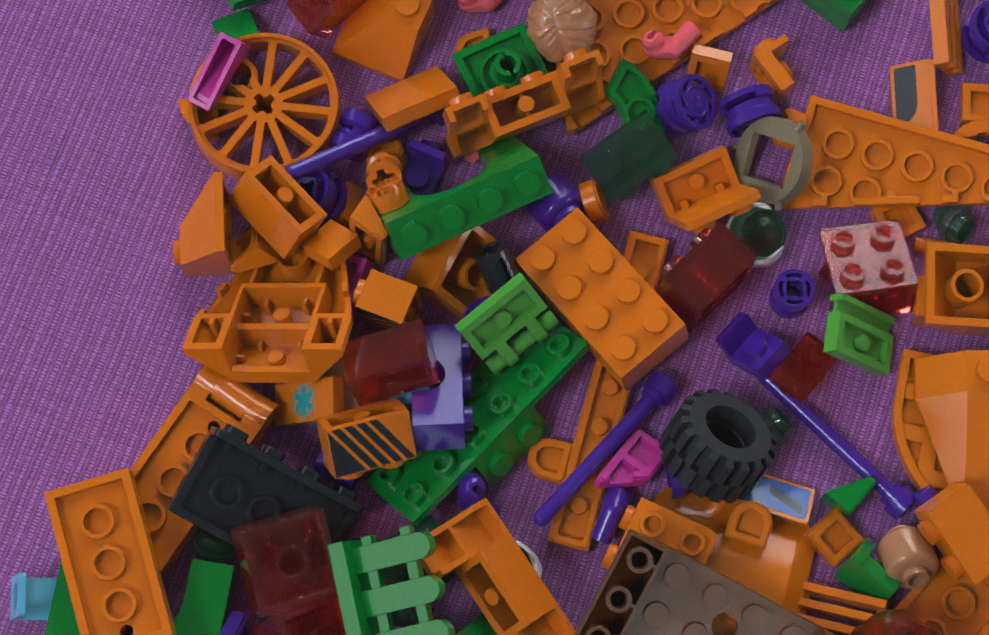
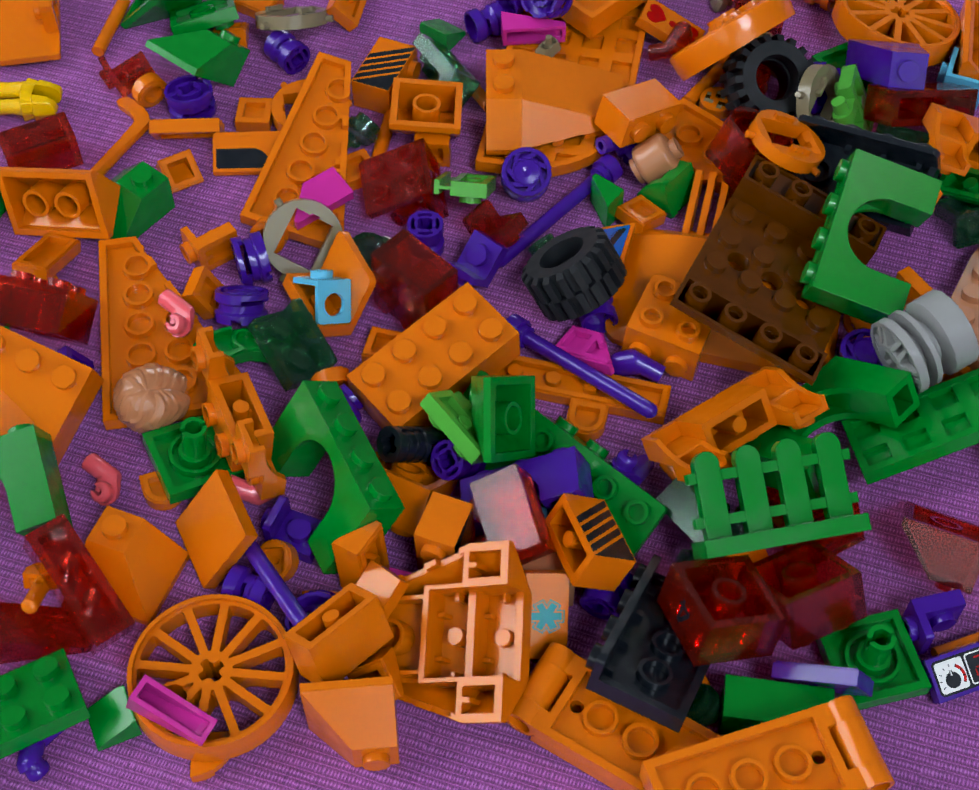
camera: 90 degrees left, 20 degrees down
(385, 193) = (314, 528): orange connector -> none
(509, 356) = (504, 416): none -> green slope
(703, 184) = (324, 286): none -> medium azure bracket
(750, 524) = (640, 257): orange tile -> none
(839, 179) = (326, 188): none -> dark pink tile
(881, 404) = (525, 174): none -> dark purple wheel
(889, 31) = (180, 170): none -> orange slope

